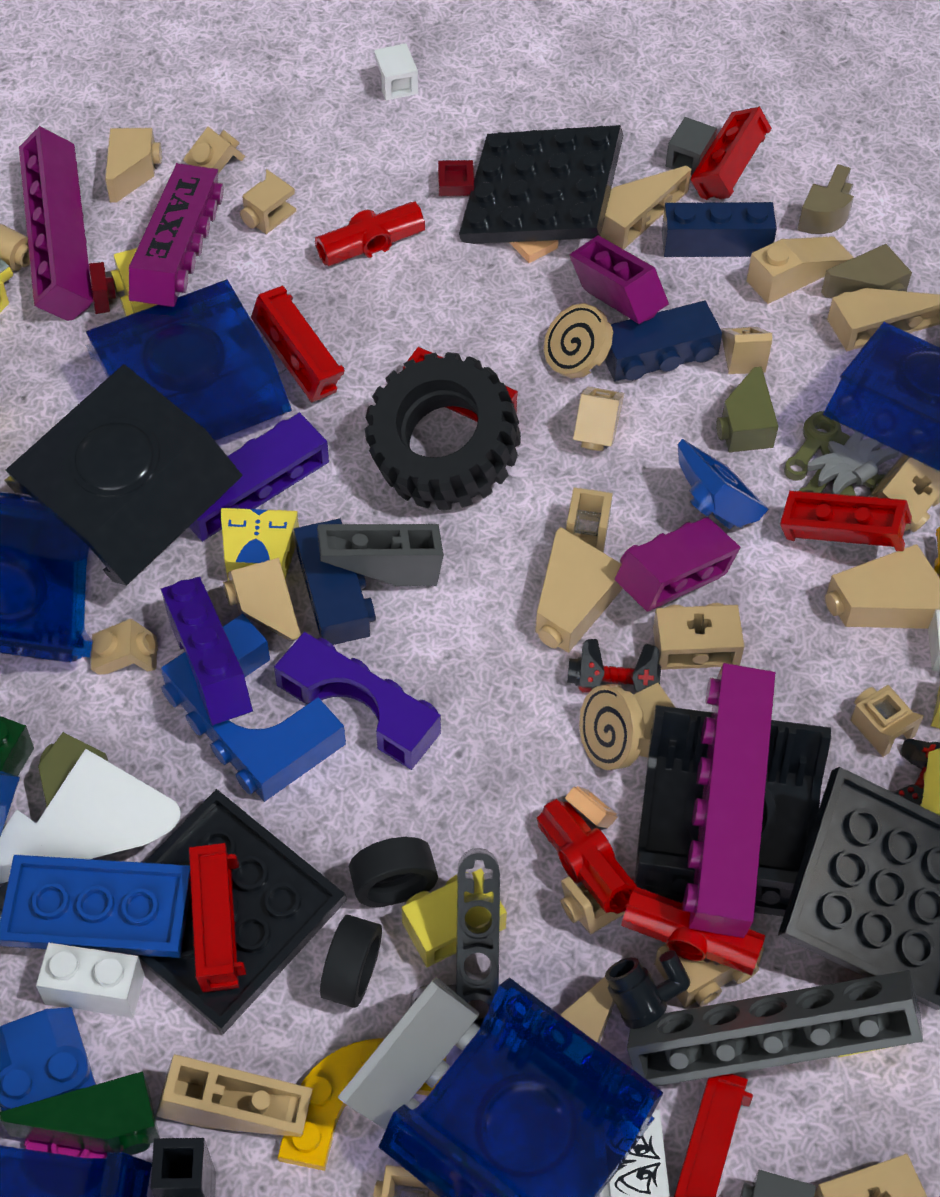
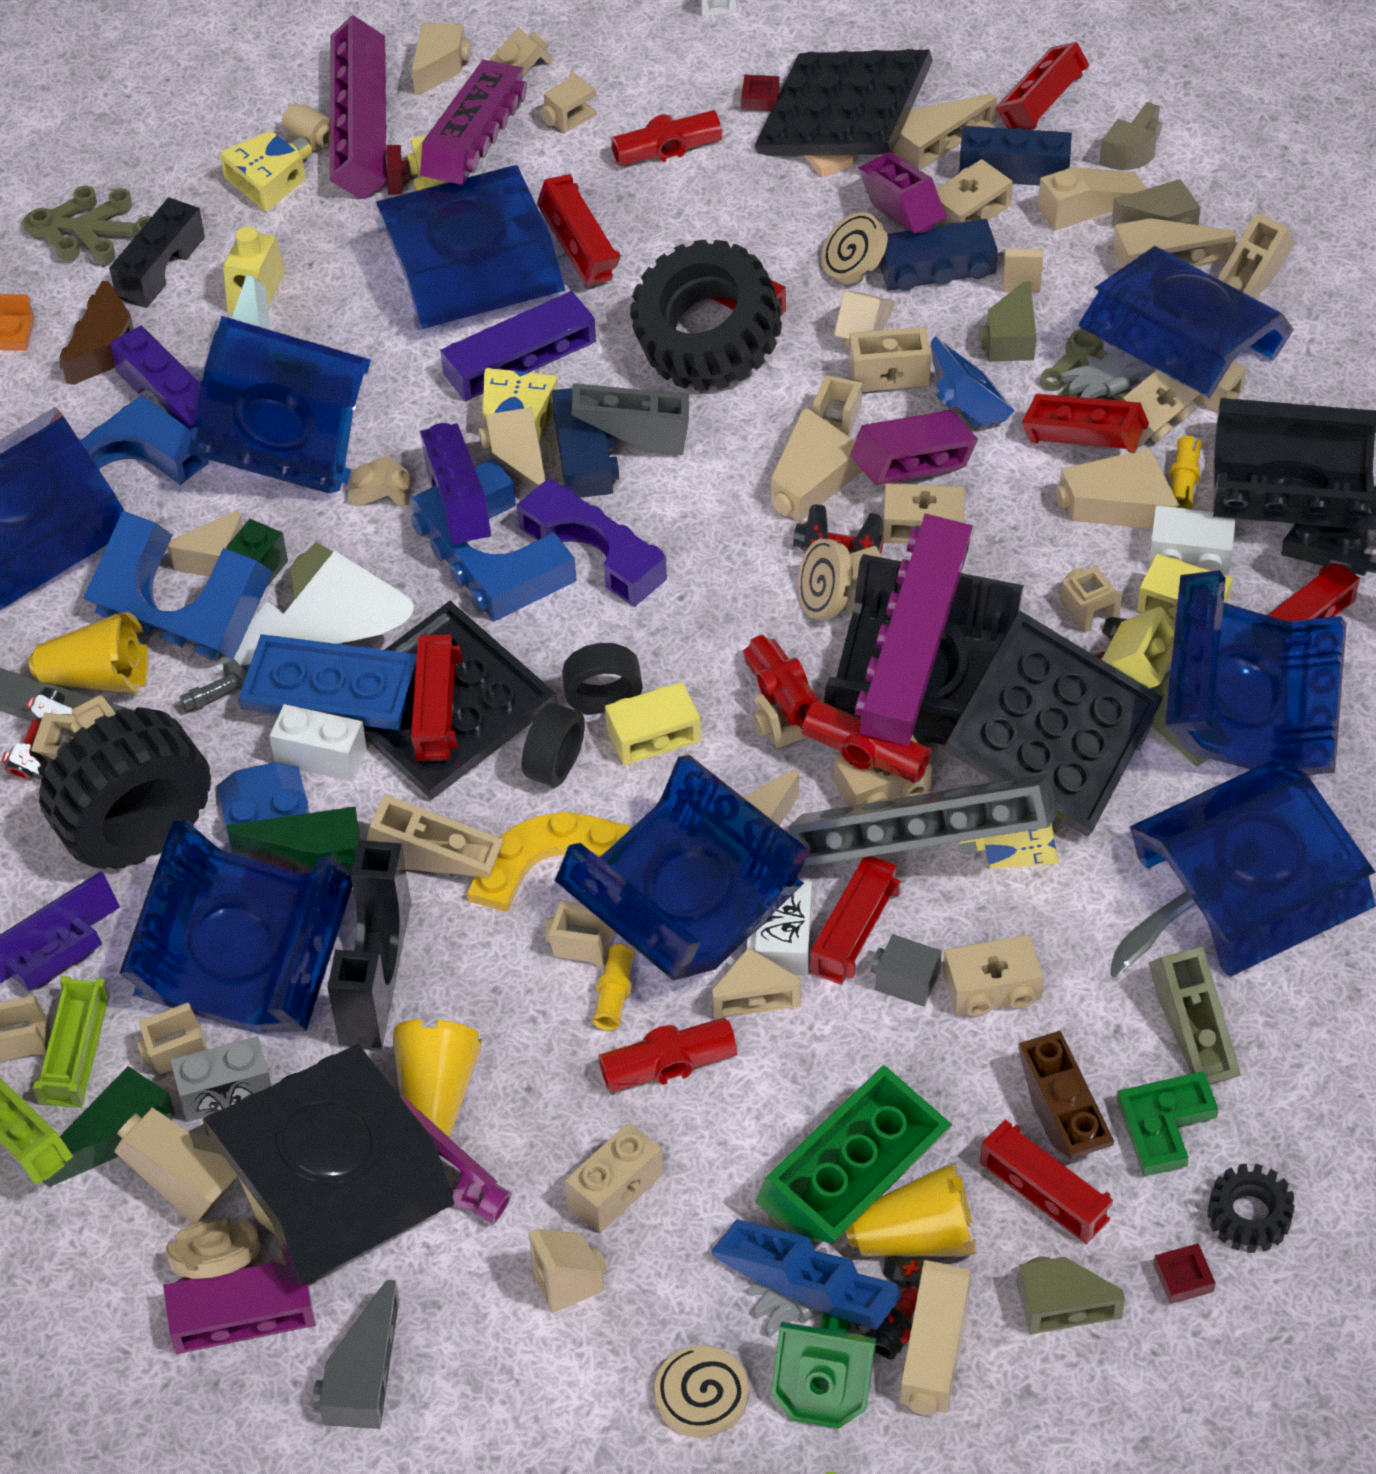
camera: 10 degrees right, 5 degrees down
(125, 473) = (398, 323): black panel -> none
(412, 1054) = (594, 805): light grey slope -> none
(476, 940) = (657, 734): black beam -> none
(591, 807) = (796, 646): light nougat tile -> none
(635, 462) = (890, 358): none -> tan brick
(636, 992) = (806, 787): black piece -> none
(688, 272) = (975, 194): none -> tan brick
(689, 144) = (1001, 73): dark grey brick -> none

